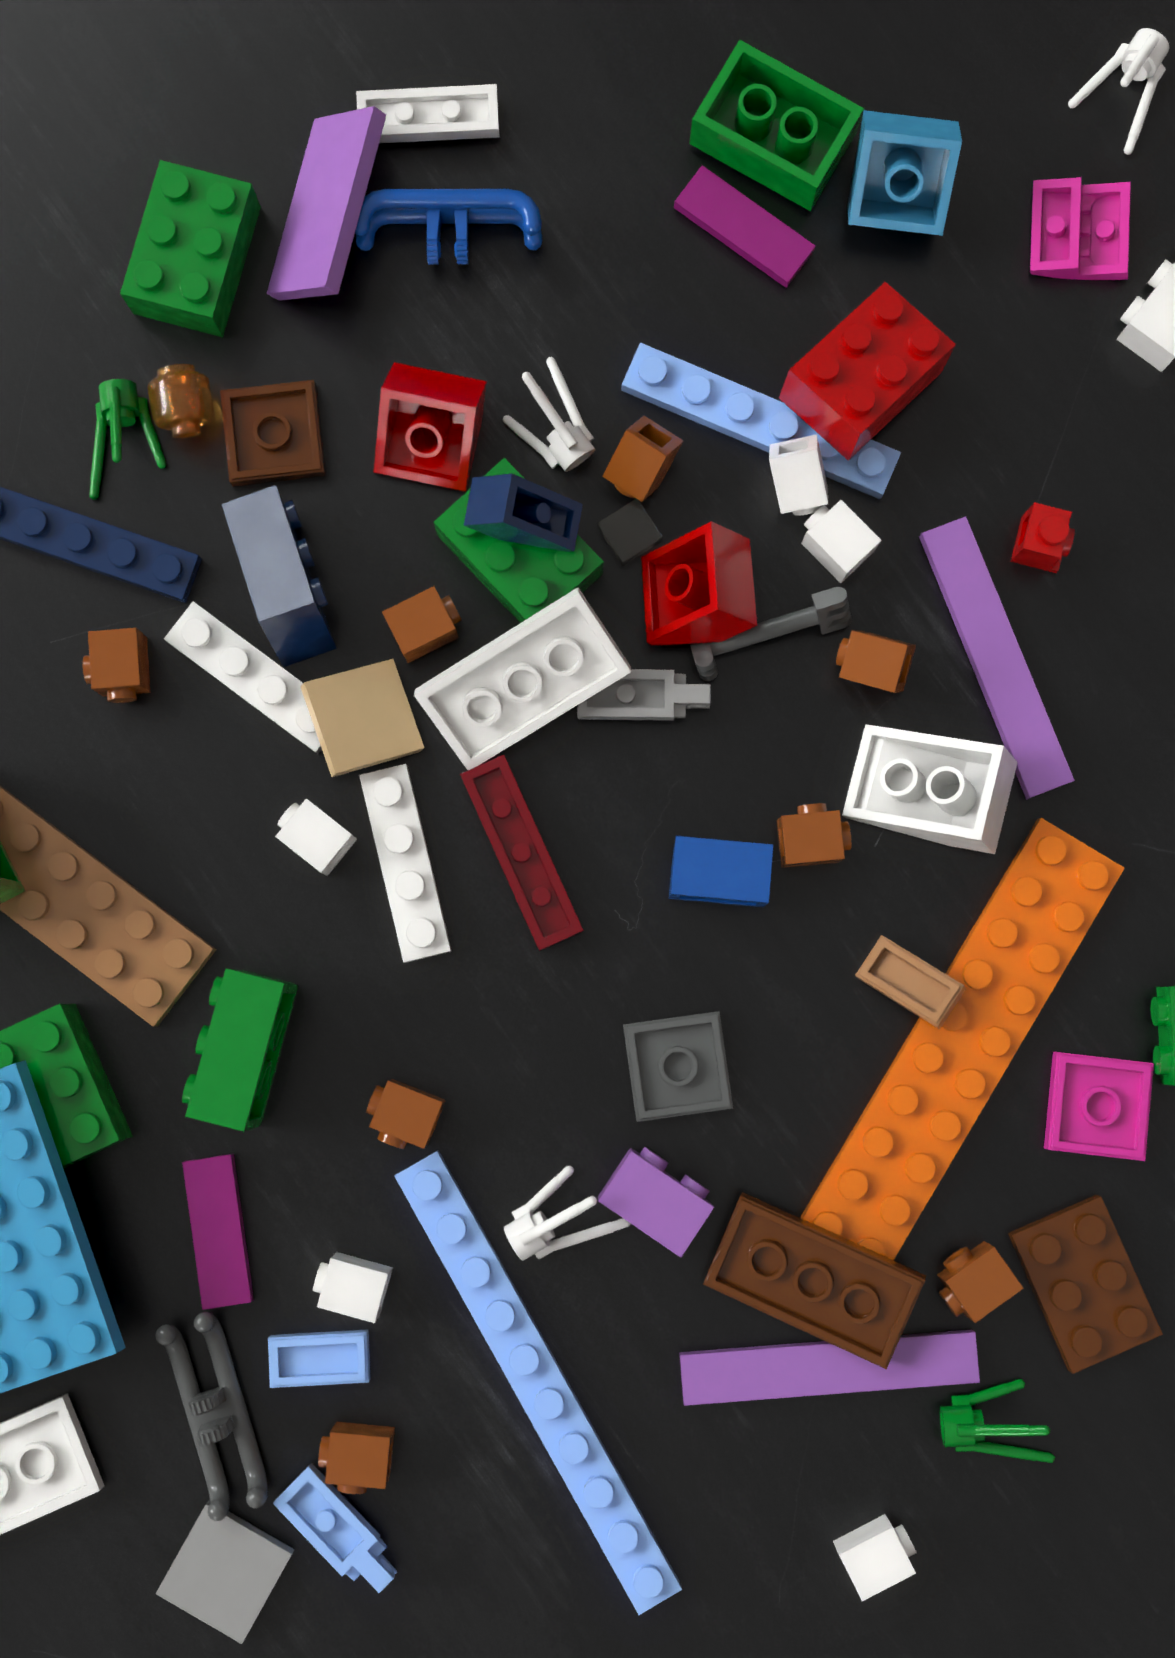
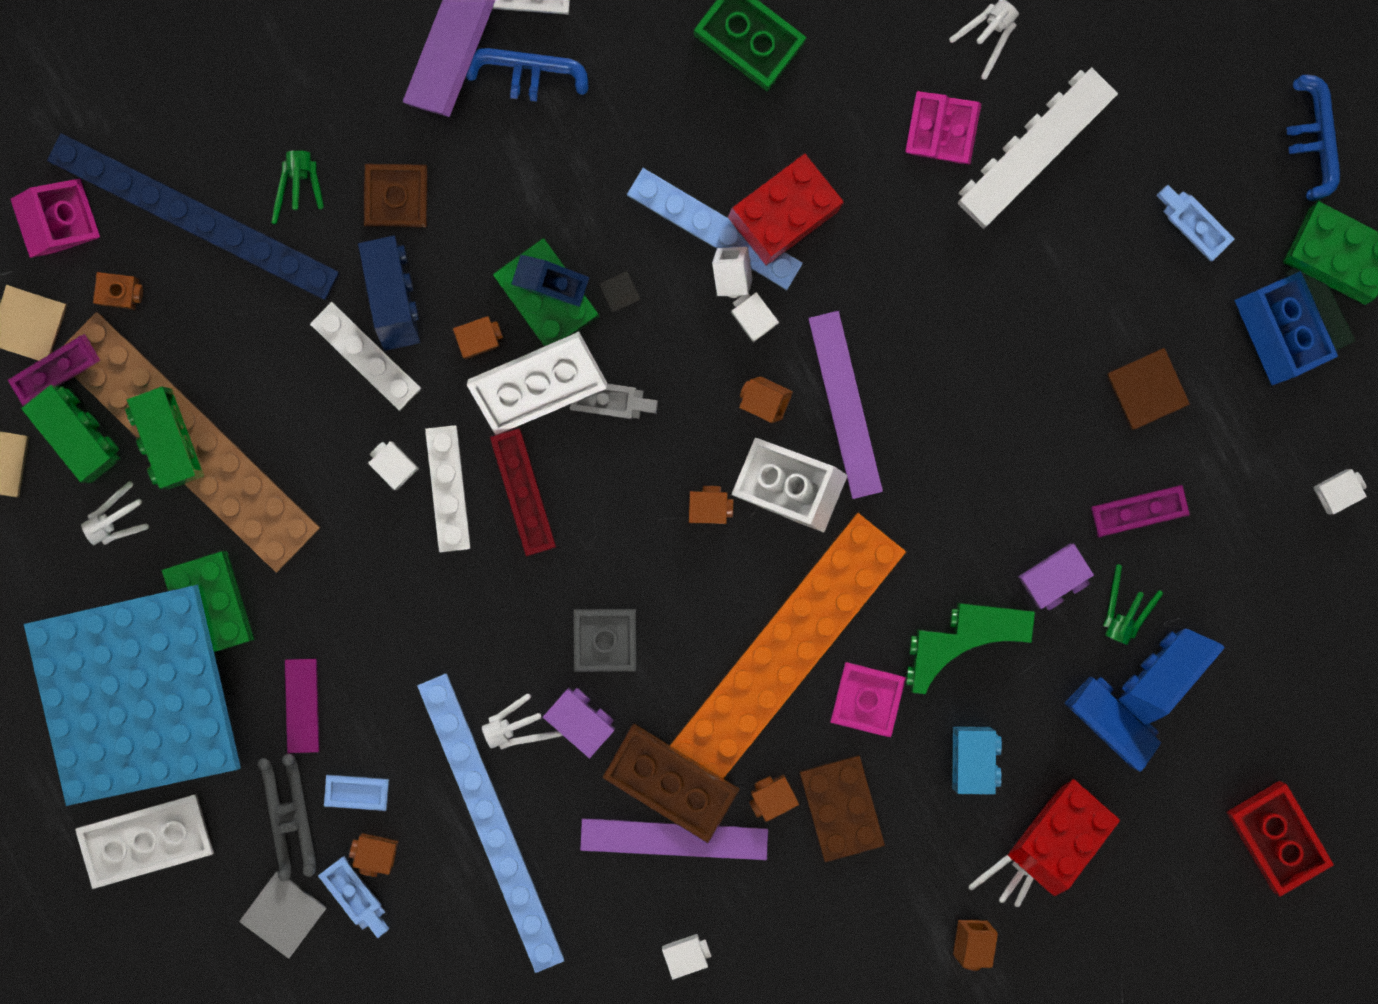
camera: 10 degrees right, 5 degrees up
(117, 664) = (278, 337): dark orange brick -> none
(180, 400) = (338, 169): clear orange head -> none
(191, 248) = (357, 68): green brick -> none
(239, 1049) = (330, 594): green brick -> none
(352, 1286) = (383, 750): white brick -> none
(362, 717) = (432, 392): tan tile -> none
(404, 1114) = (428, 648): dark orange brick -> none
(428, 426) = (498, 206): red slope -> none
(568, 444) = (586, 228): white plant -> none
(642, 459) = (633, 247): dark orange brick -> none
(699, 588) = (658, 337): red slope -> none
(721, 871) = (648, 520): blue brick -> none
(744, 226) = (722, 96): magenta tile -> none
(829, 611) = (739, 361): dark grey hinge -> none
(903, 172) = (827, 81): dark azure brick -> none
(910, 982) = (758, 606): medium nougat tile -> none
(966, 1429) = (753, 885): green plant -> none
(1043, 537) = (886, 332): red brick -> none

